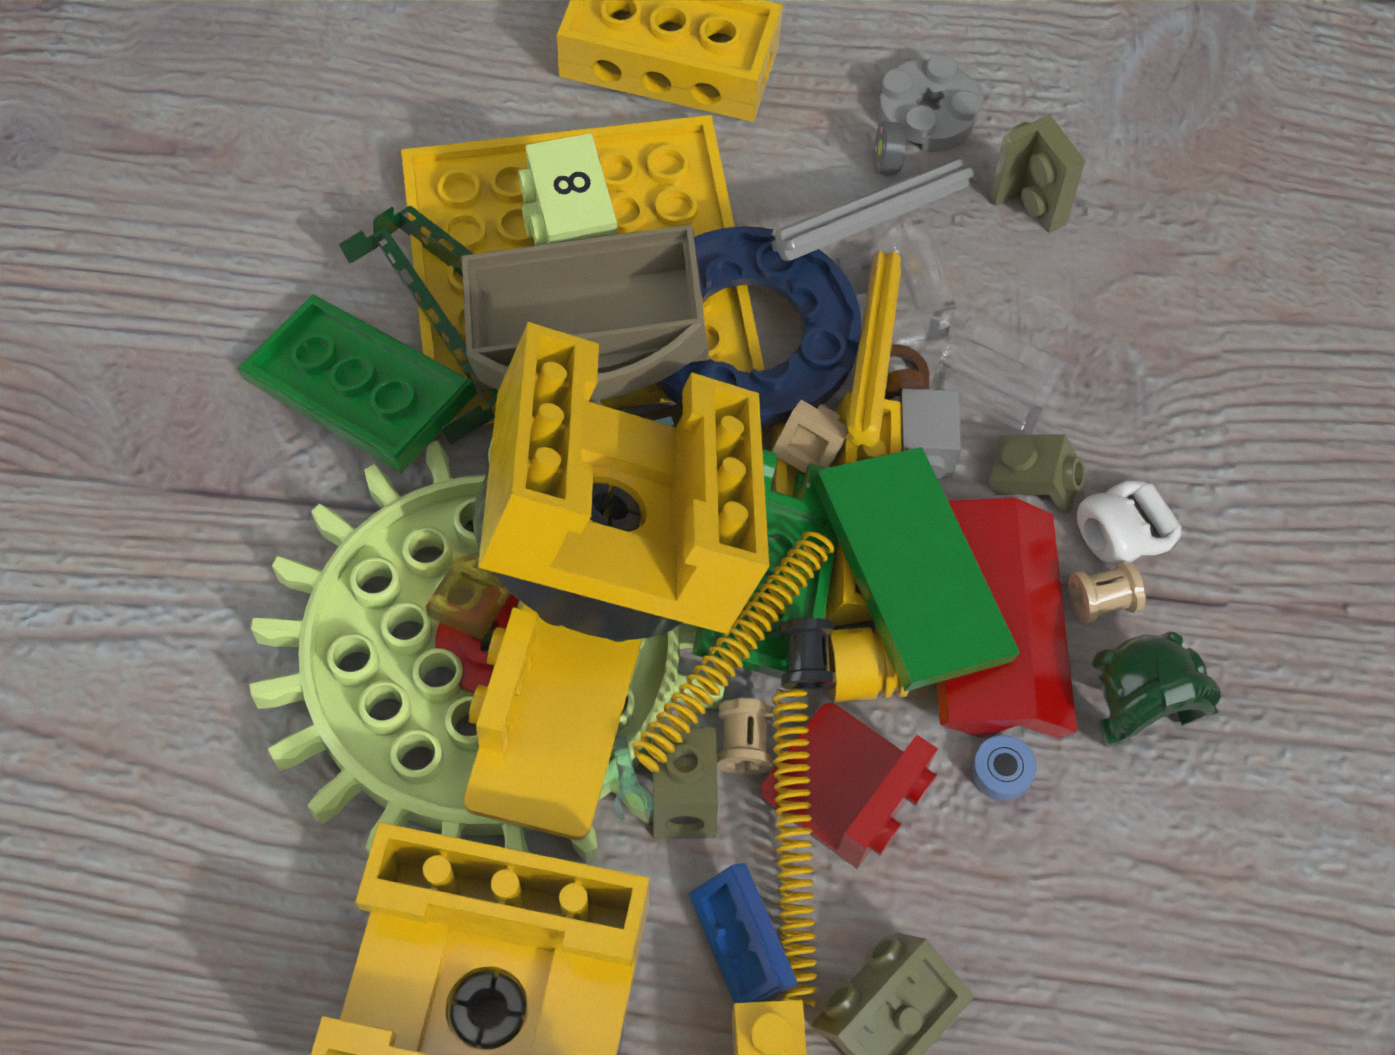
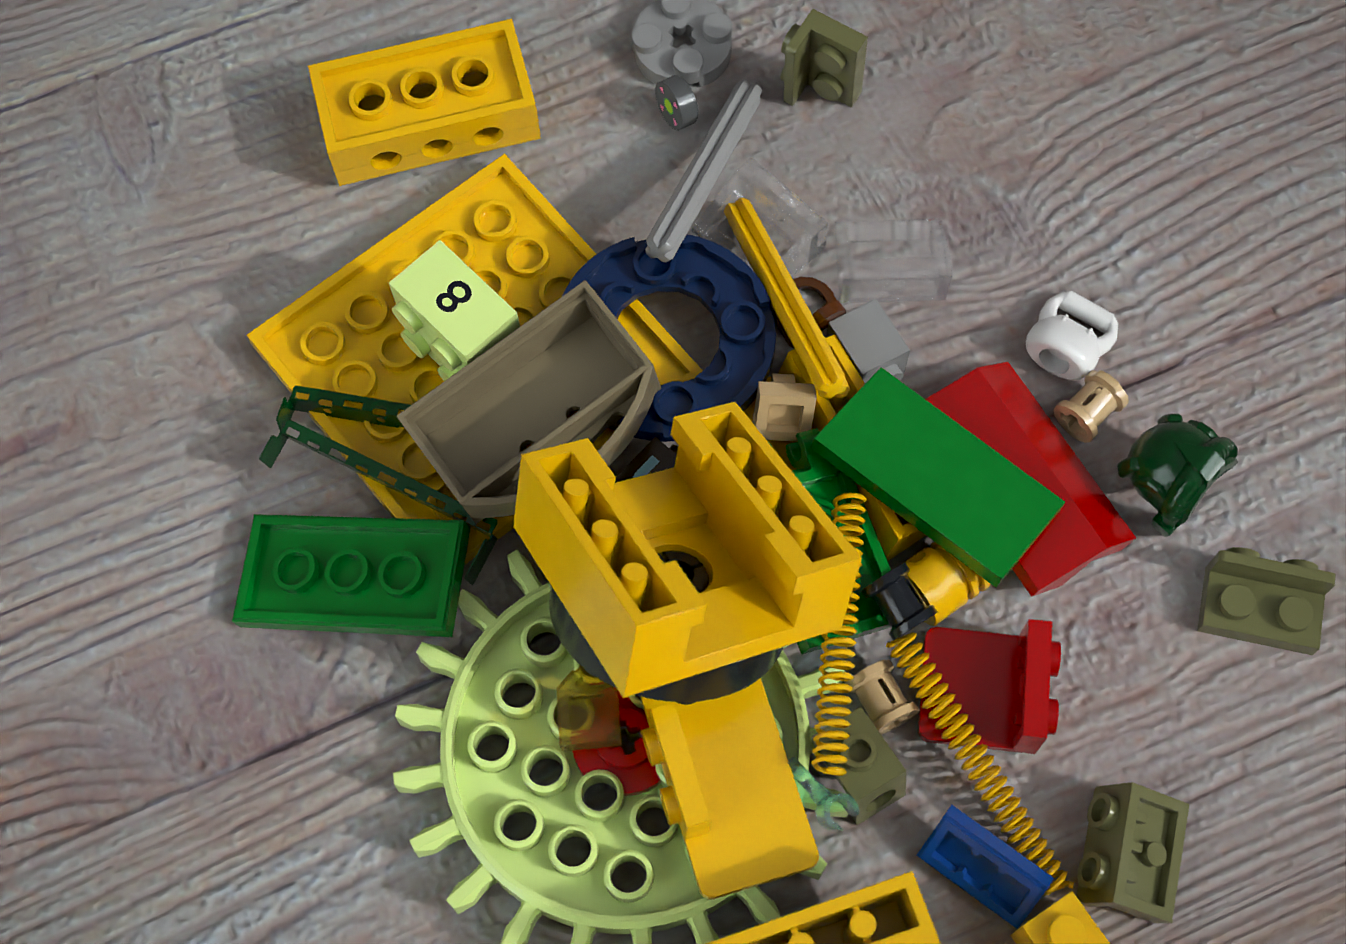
camera: 25 degrees left, 5 degrees up
(1003, 768) = (1097, 601): medium blue tile -> none
(1038, 467) = (972, 328): olive bracket -> none
(1168, 856) = (1264, 600): none -> olive bracket

